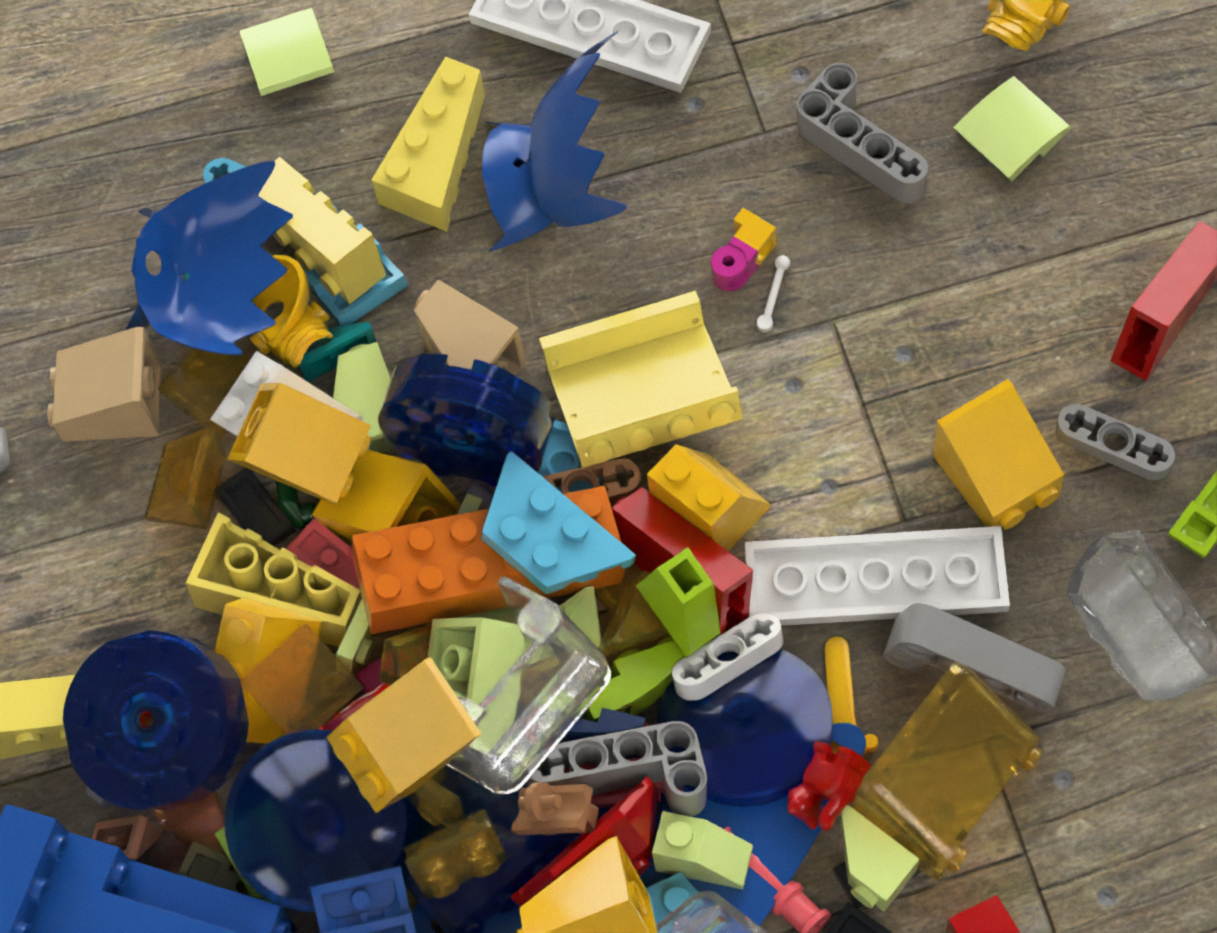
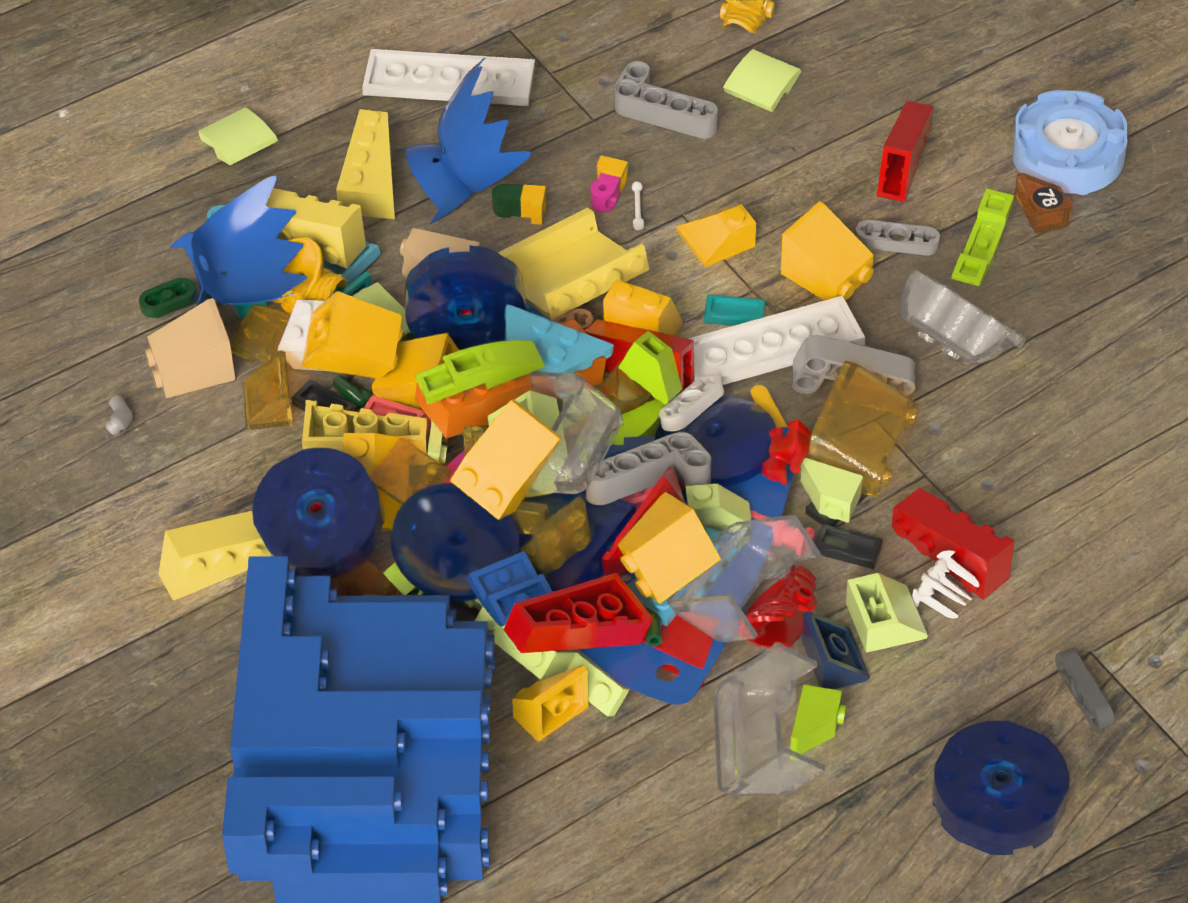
camera: 25 degrees left, 15 degrees down
(112, 284) = (167, 297): none -> dark green plate
(427, 560) = (477, 365): none -> lime slope
(555, 810) = (615, 493): medium nougat hips -> none
(616, 250) = (520, 201): none -> leg
(846, 505) = (732, 310): none -> teal tile
(865, 371) = (719, 234): none -> yellow slope

